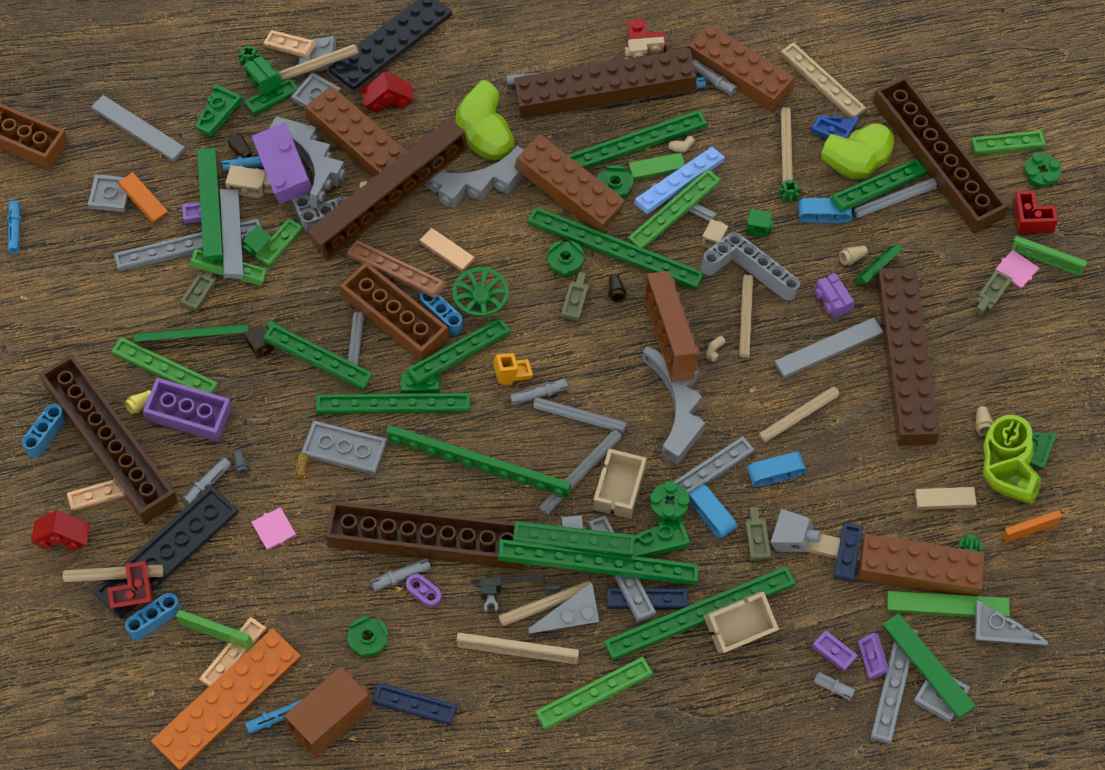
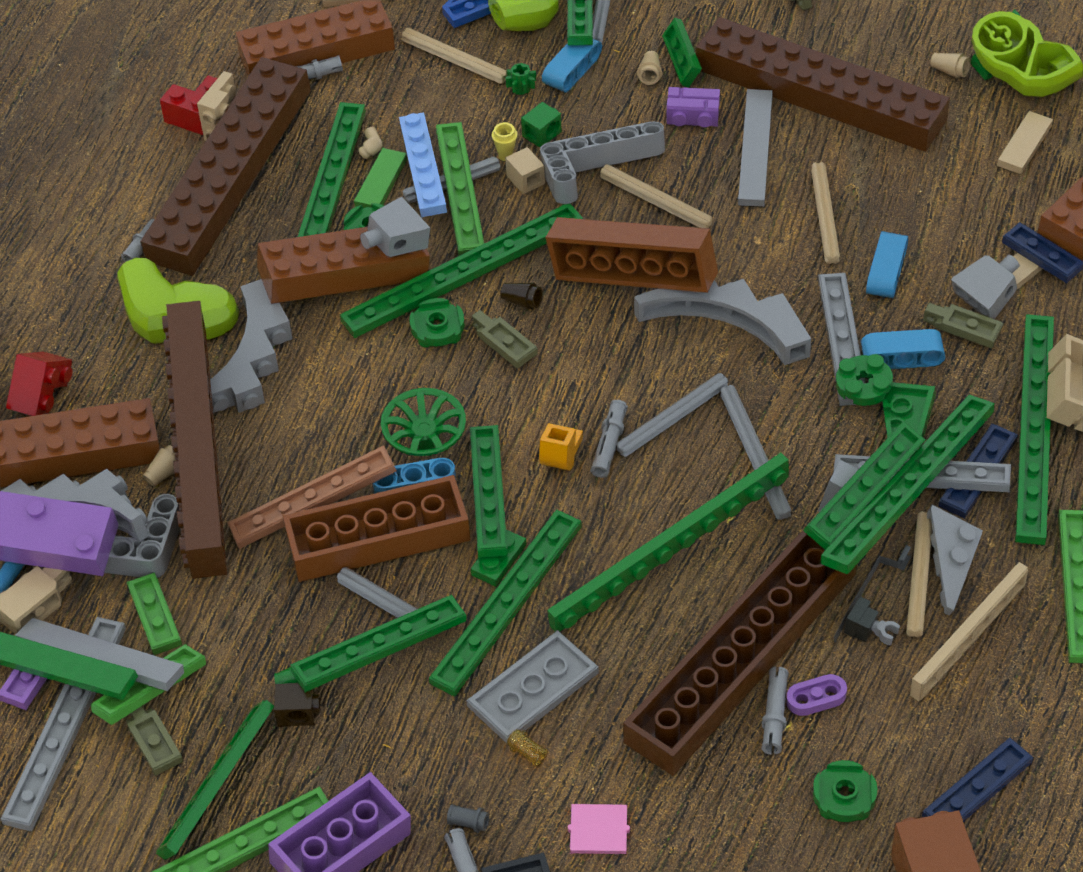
camera: 55 degrees left, 10 degrees down
(255, 240) = (134, 629): green brick -> none
(447, 250) = (322, 436): light nougat tile -> none
(598, 194) = (396, 229): none -> light grey torso
(619, 483) = (807, 414): tan piece -> none
(727, 210) = (504, 138): none -> light yellow cone

